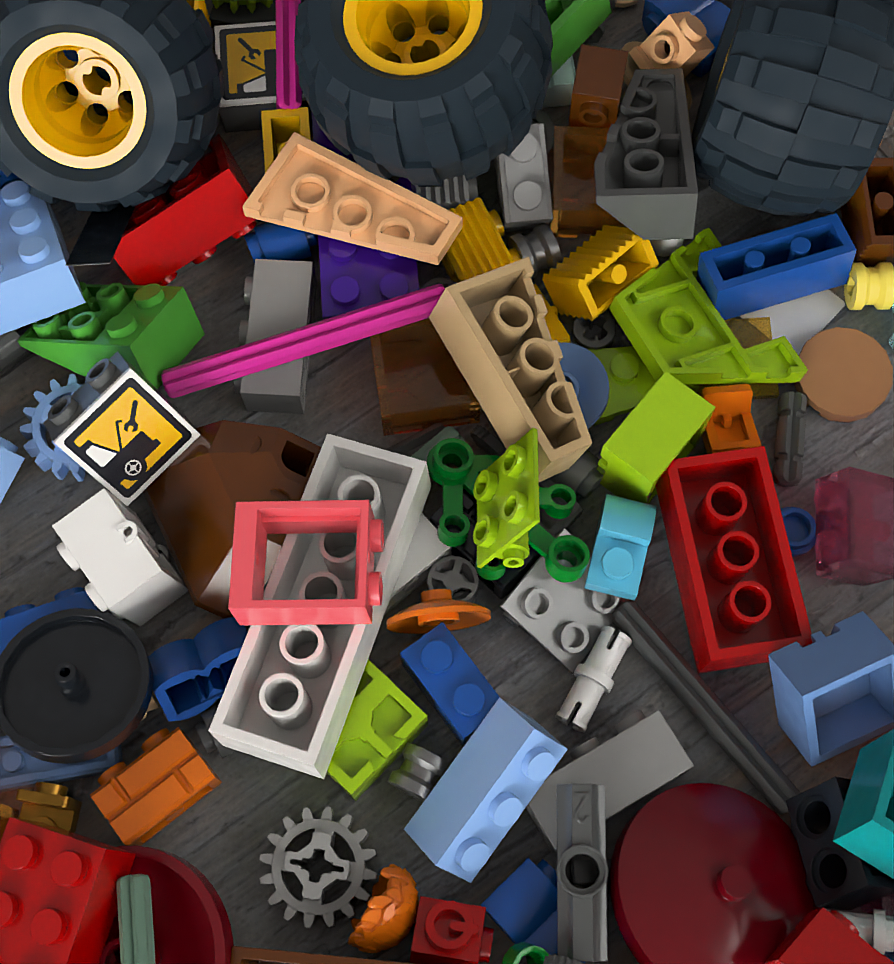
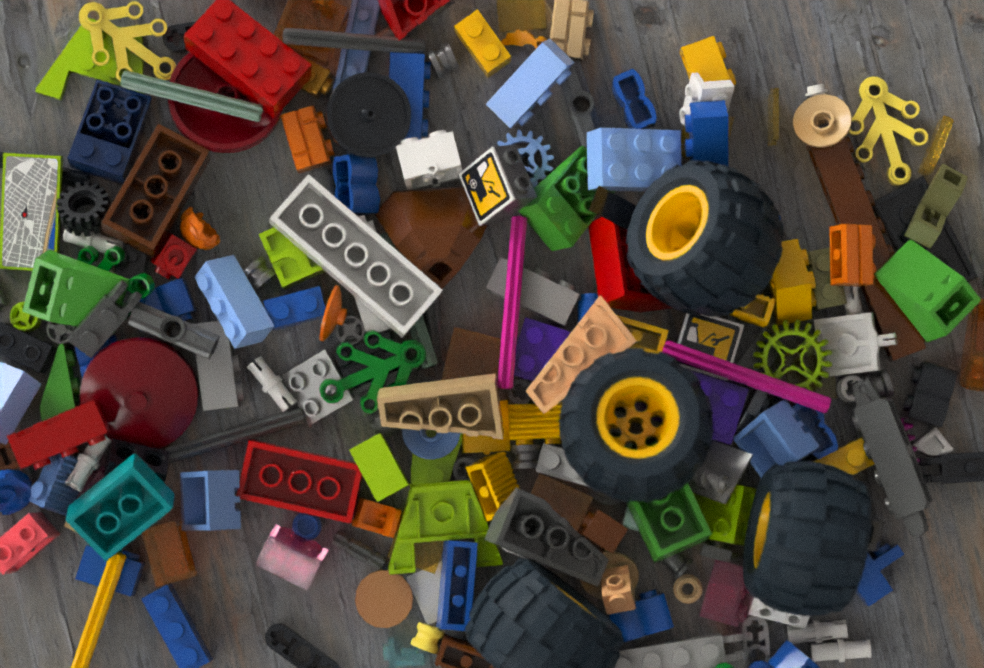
camera: 115 degrees right, 15 degrees up
(248, 563) = (383, 224): coral window -> none
(315, 892) = (240, 194): light grey gear -> none
(508, 504) = (367, 367): lime hinge -> none
(620, 546) = (332, 426): medium azure brick -> none

